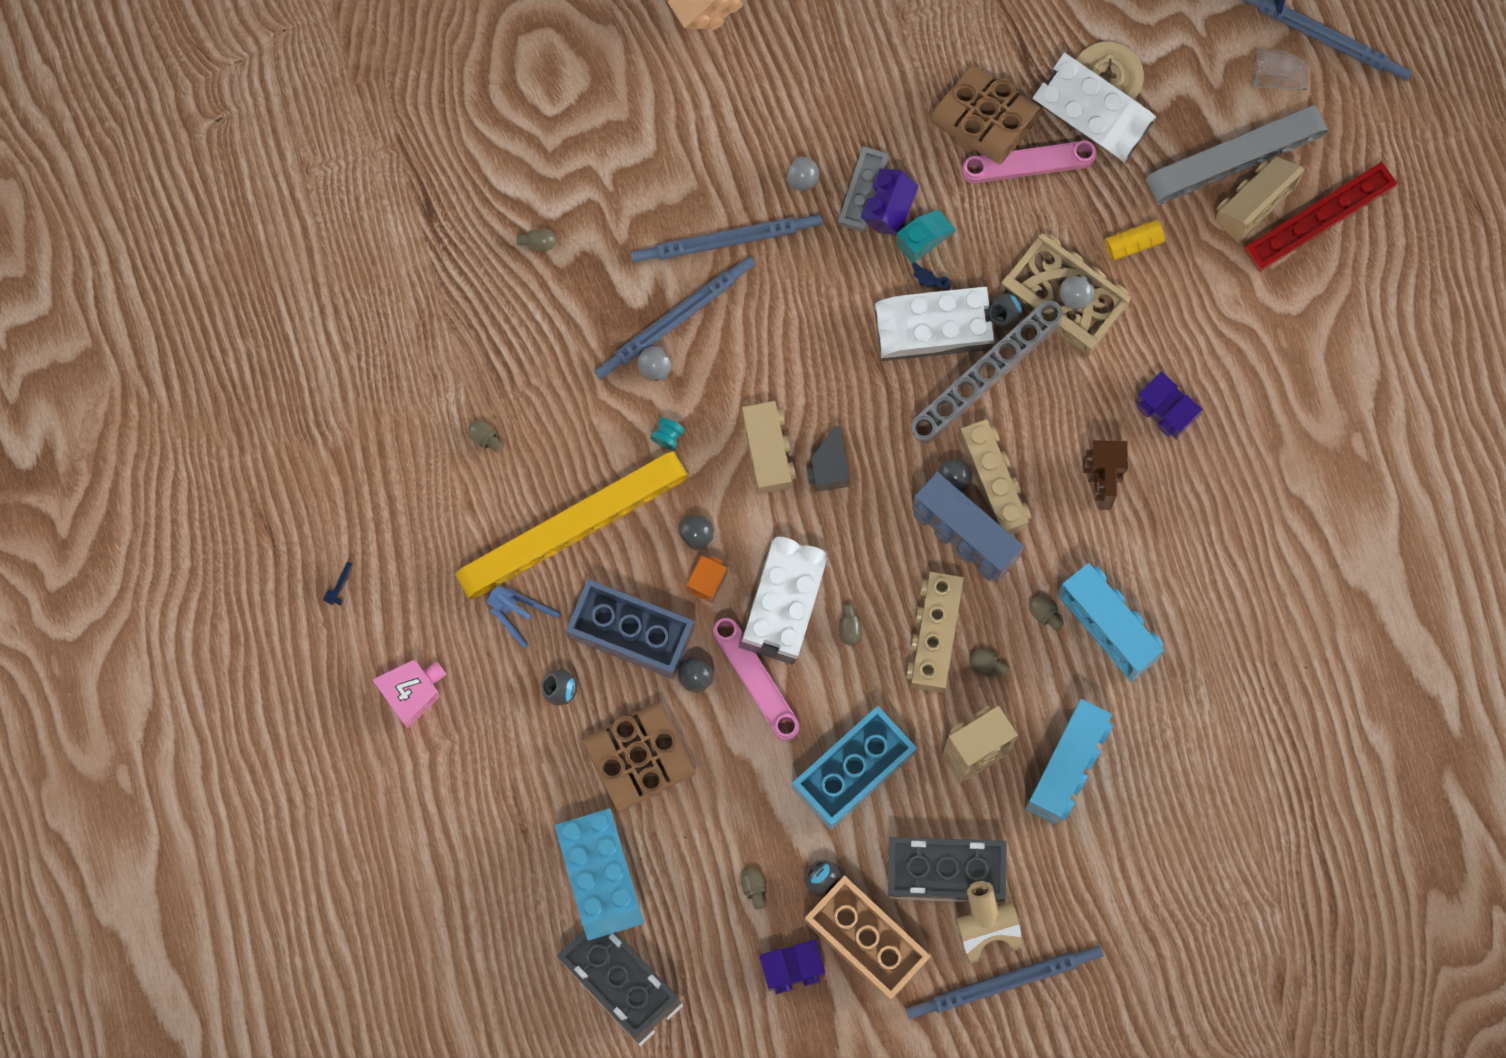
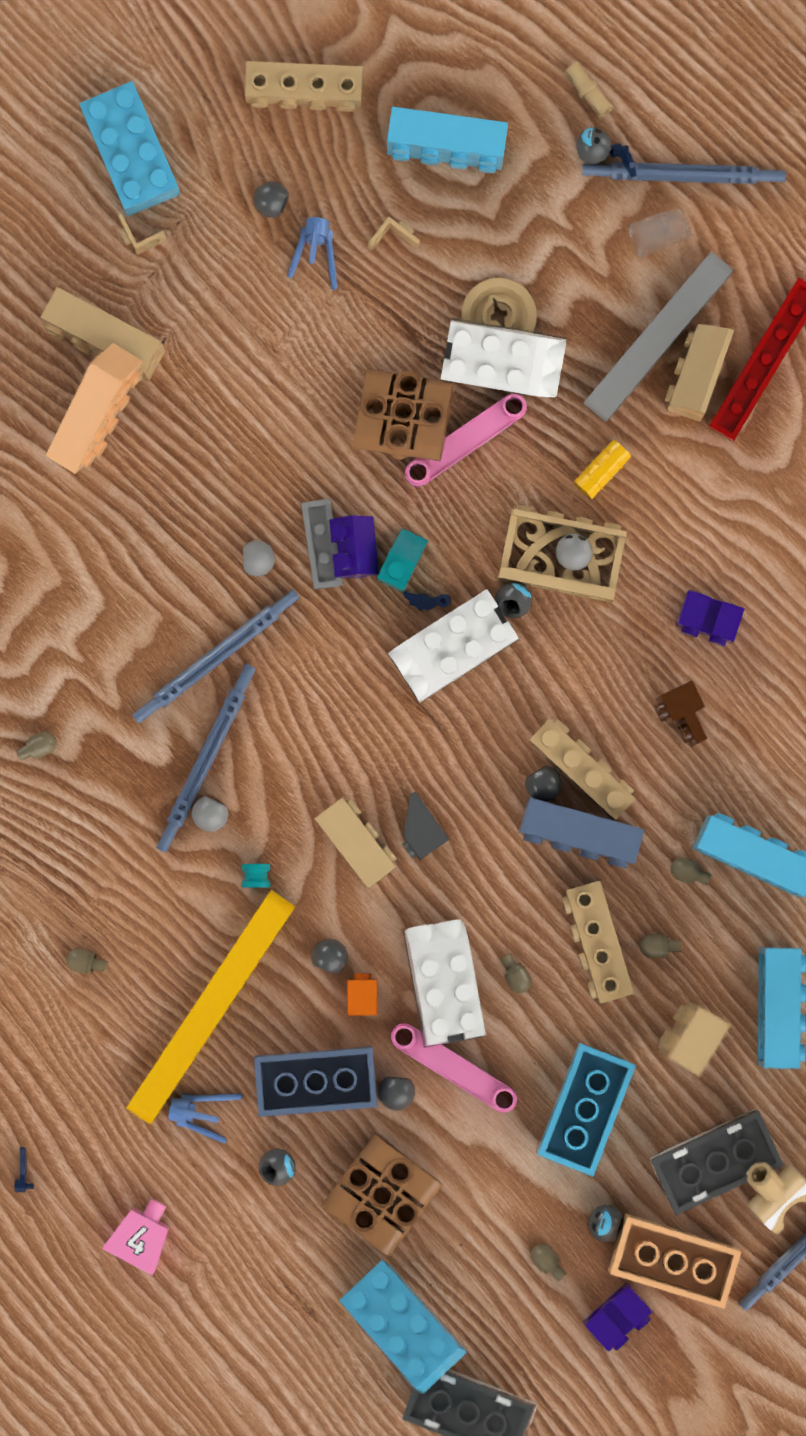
camera: 30 degrees left, 10 degrees up
(993, 359) = (526, 686): light grey beam -> none

